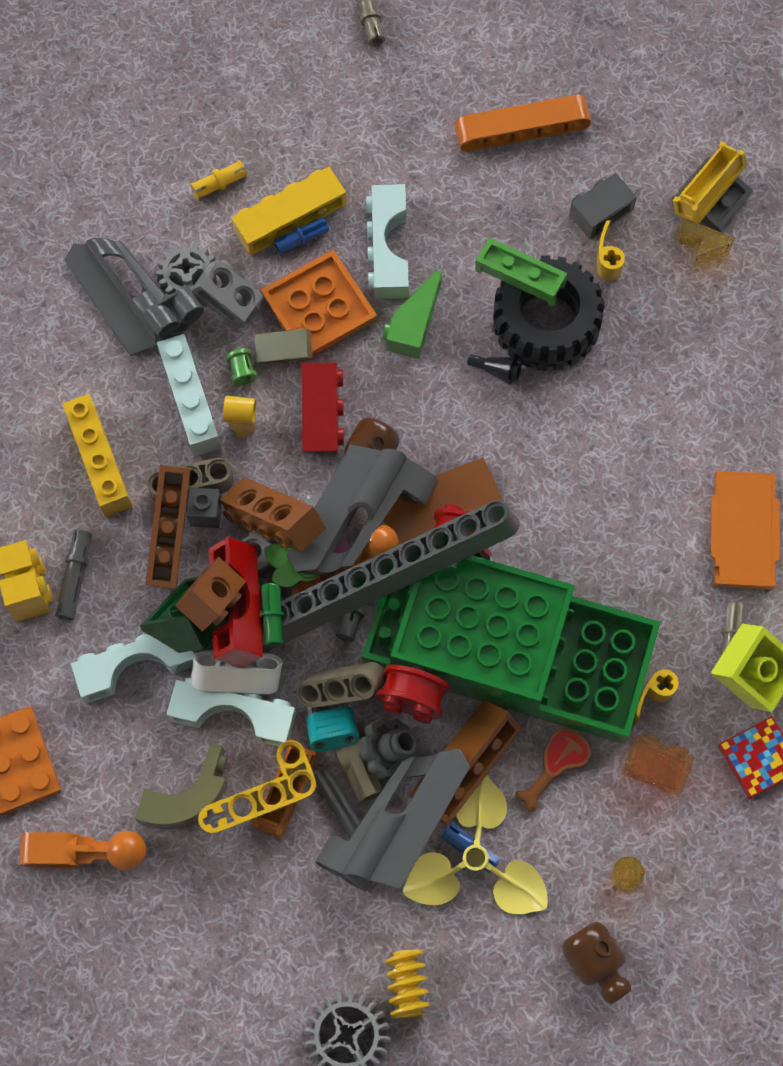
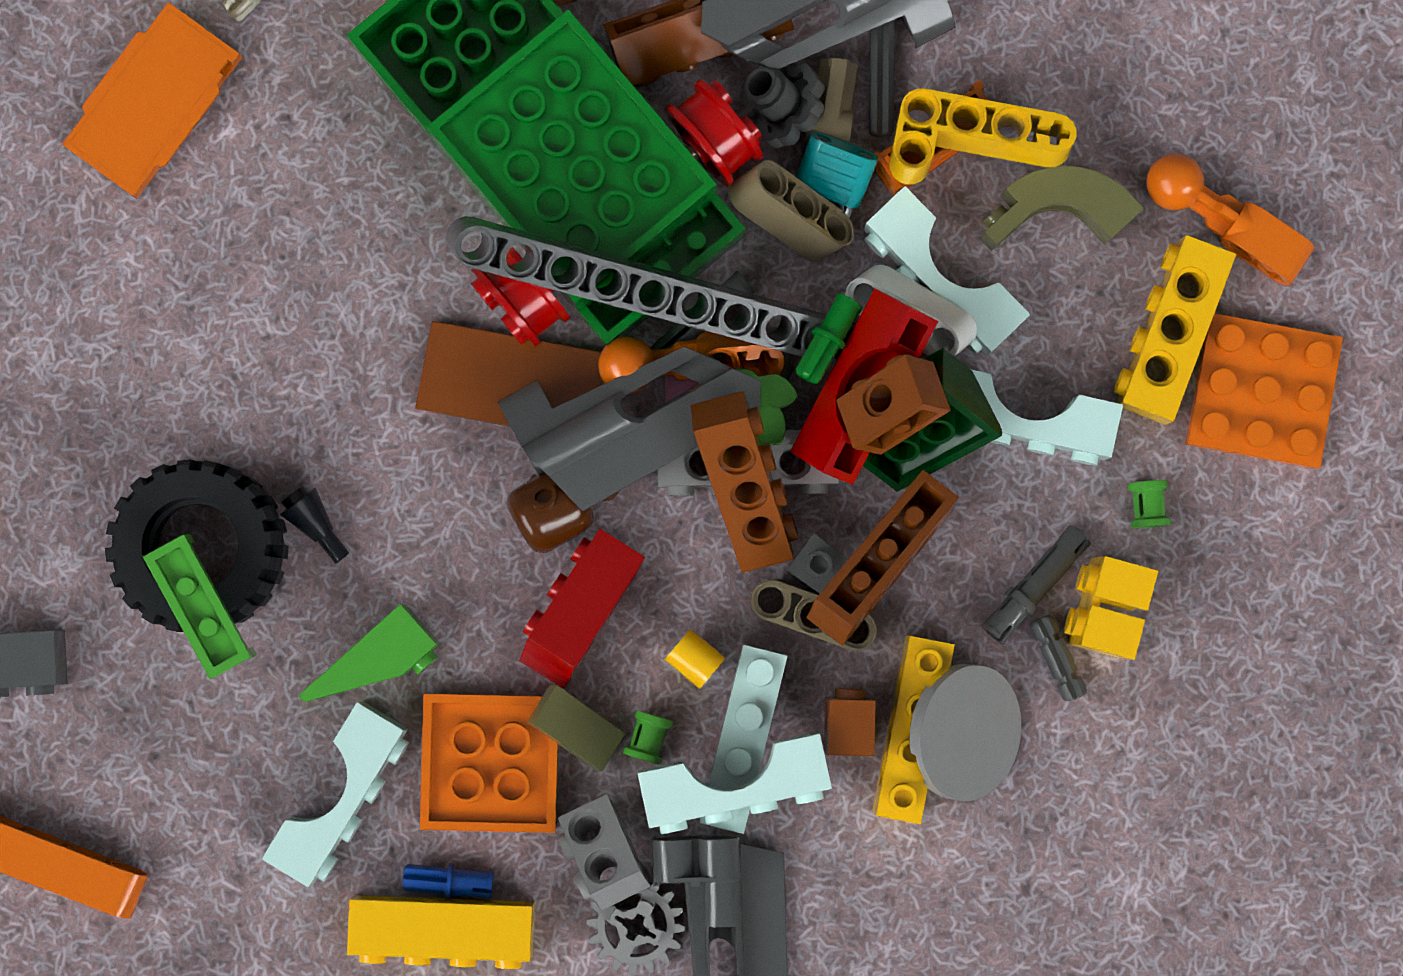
camera: 150 degrees left, 15 degrees up
(33, 657) = (1149, 504): none -> bright green bush
(44, 547) = (1058, 658): none -> dark grey axle
(62, 719) = (1209, 270): none -> yellow brick
(65, 466) = (966, 732): none -> light grey tile
(133, 431) = (849, 723): none -> dark orange brick
(201, 333) = (793, 770): none -> light aqua arch
(609, 254) = (66, 586): yellow panel -> none

